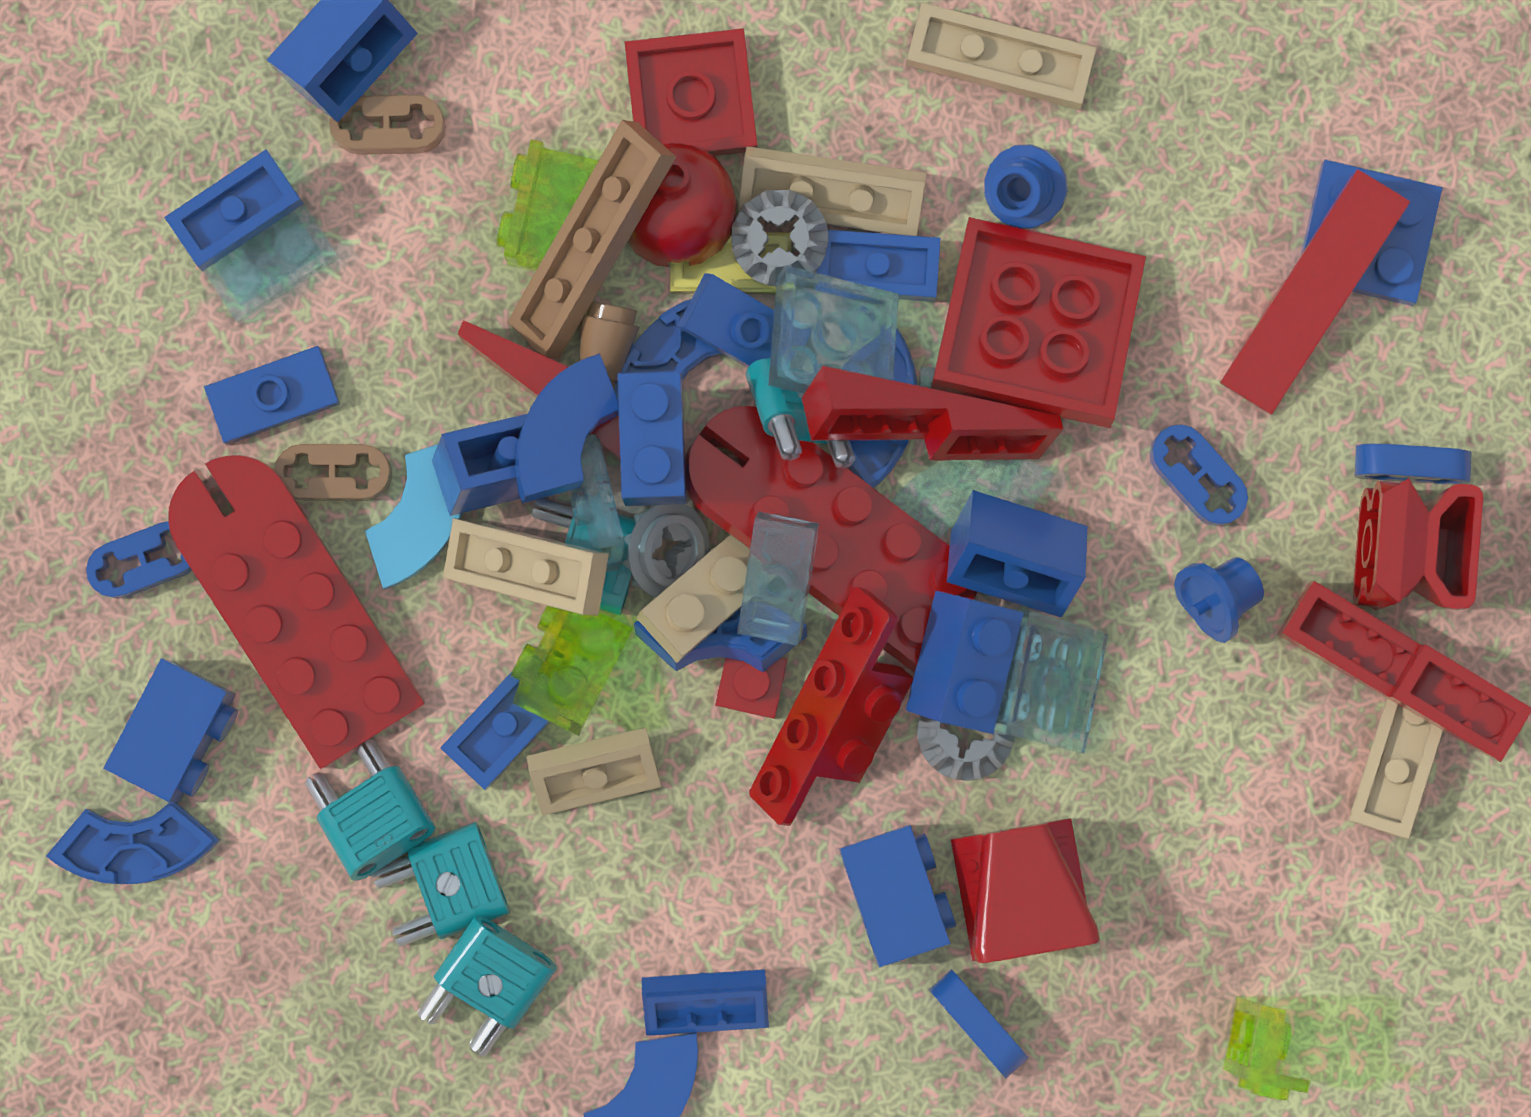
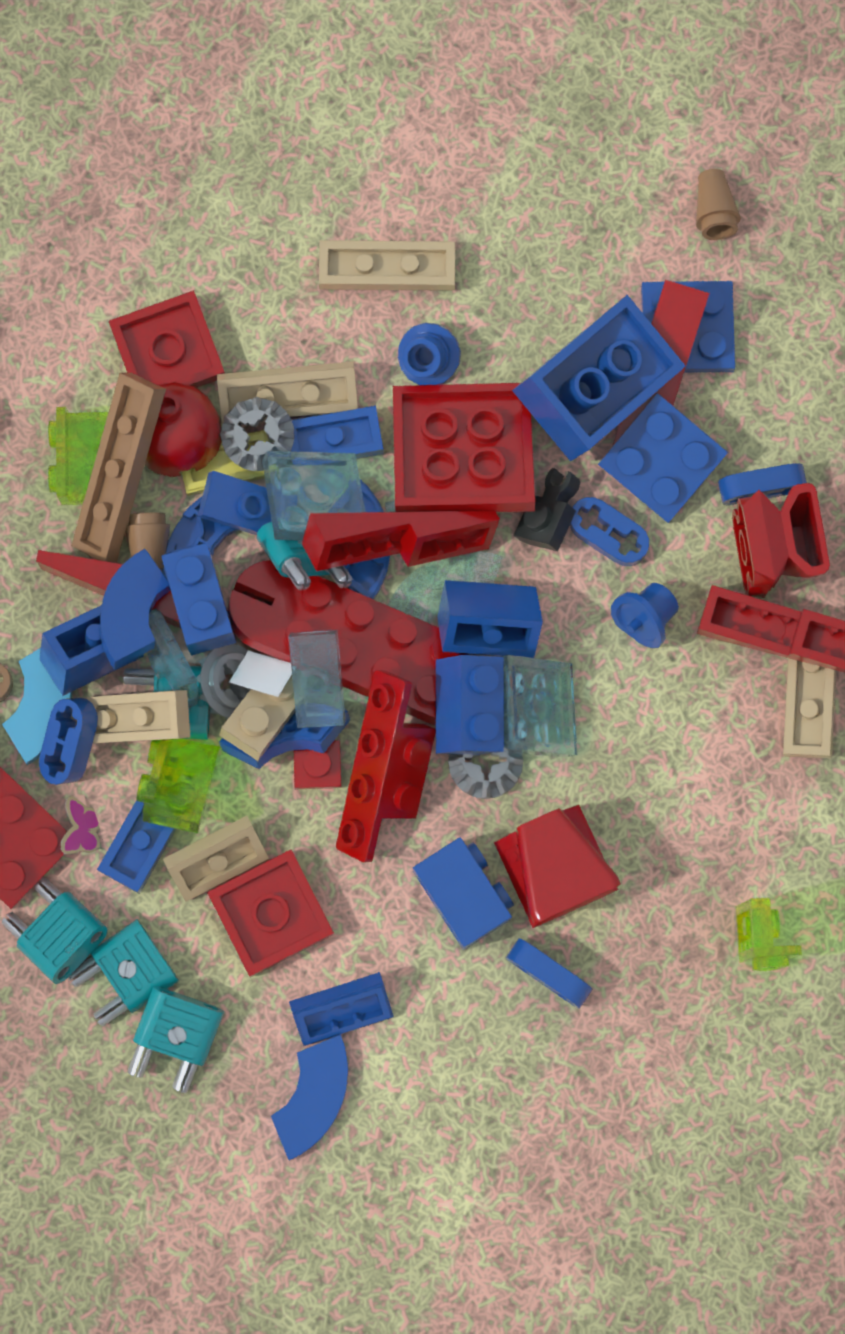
camera: 15 degrees left, 5 degrees down
(433, 697) = (83, 833): none -> dark pink sticker
(443, 574) = (68, 741): none -> blue beam
(645, 858) = (270, 913): none -> red plate
(710, 552) = (262, 673): none -> white sticker
(1132, 437) = (552, 513): none -> pearl dark grey plate
(1238, 277) = (599, 378): none -> blue slope
(1293, 398) = (663, 458): none -> blue plate
(1446, 83) = (716, 206): none -> medium nougat cone

